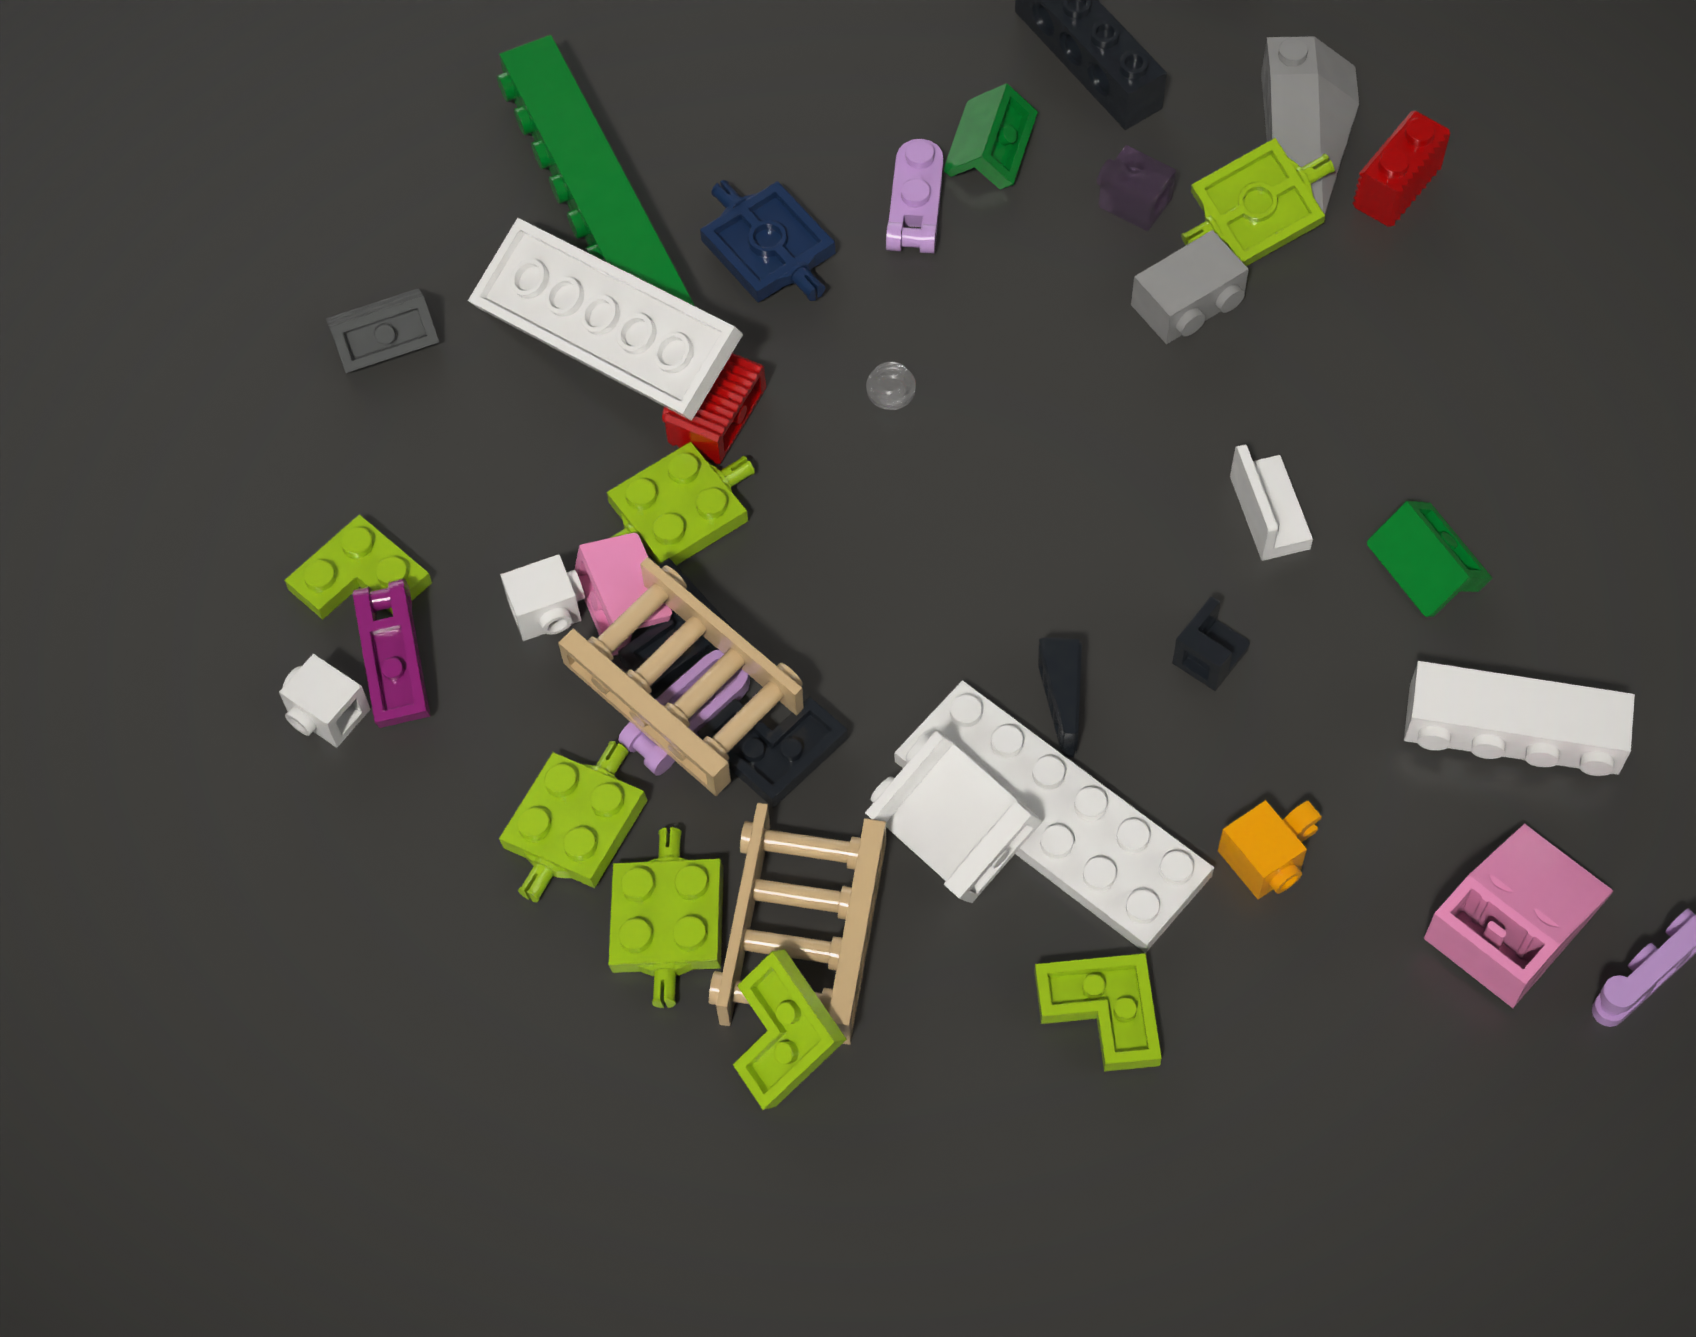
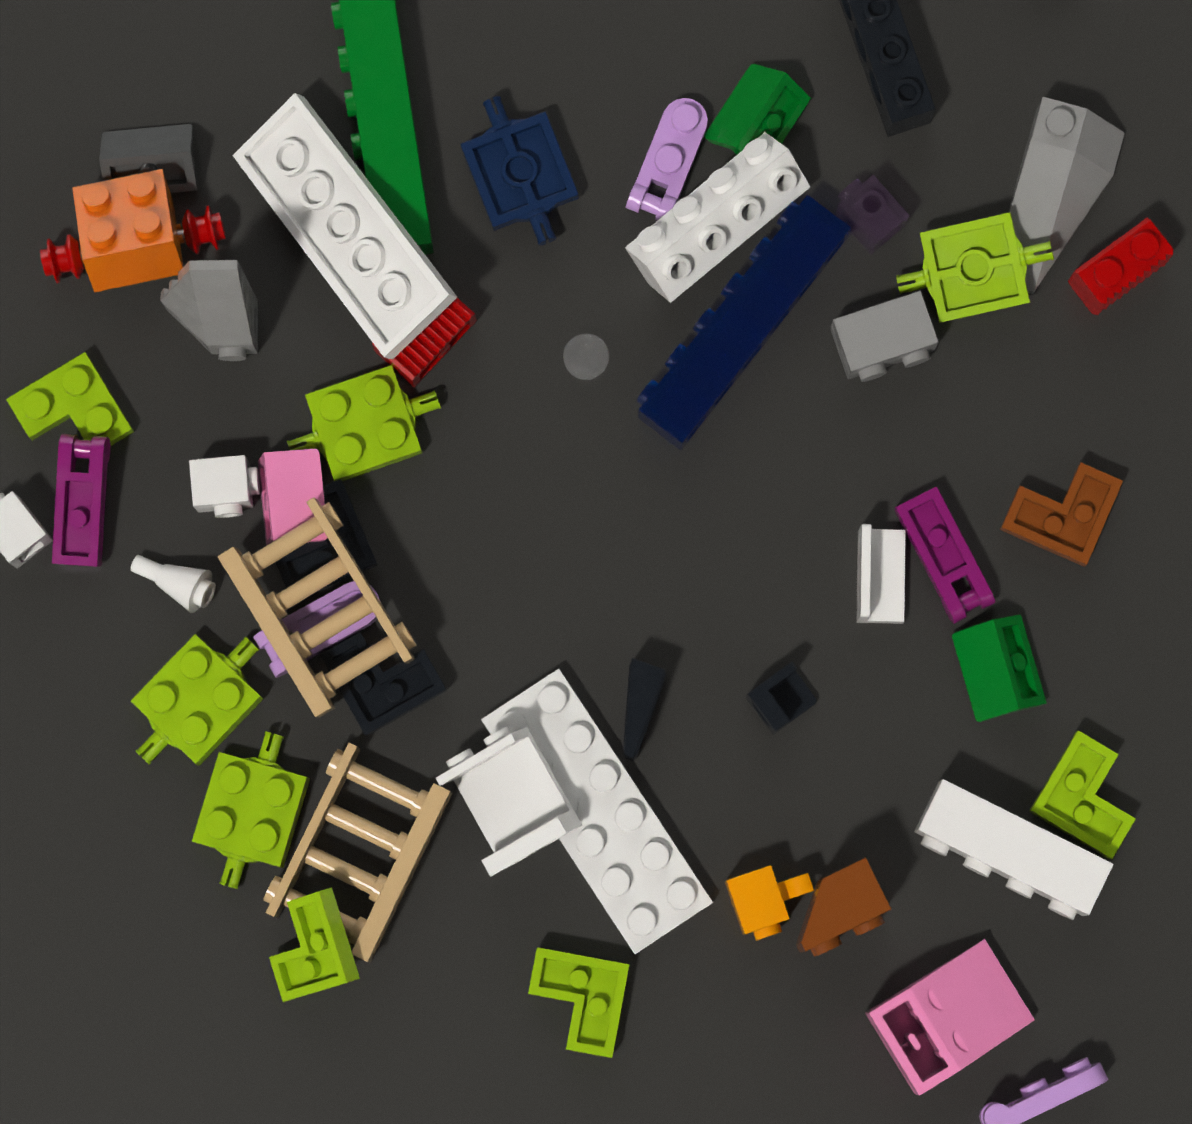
camera: 15 degrees right, 20 degrees up
(378, 386) = (129, 233): none -> orange brick
(482, 410) = (215, 307): none -> light grey wedge
(528, 706) = (186, 585): none -> white cone
(982, 222) = (717, 216): none -> white brick
(1040, 315) = (743, 321): none -> clear blue brick
(1330, 467) = (944, 553): none -> magenta plate
(1362, 818) = (842, 903): none -> dark orange slope
(1443, 410) = (1065, 527): none -> dark orange plate
(1557, 651) = (1071, 802): none -> lime plate

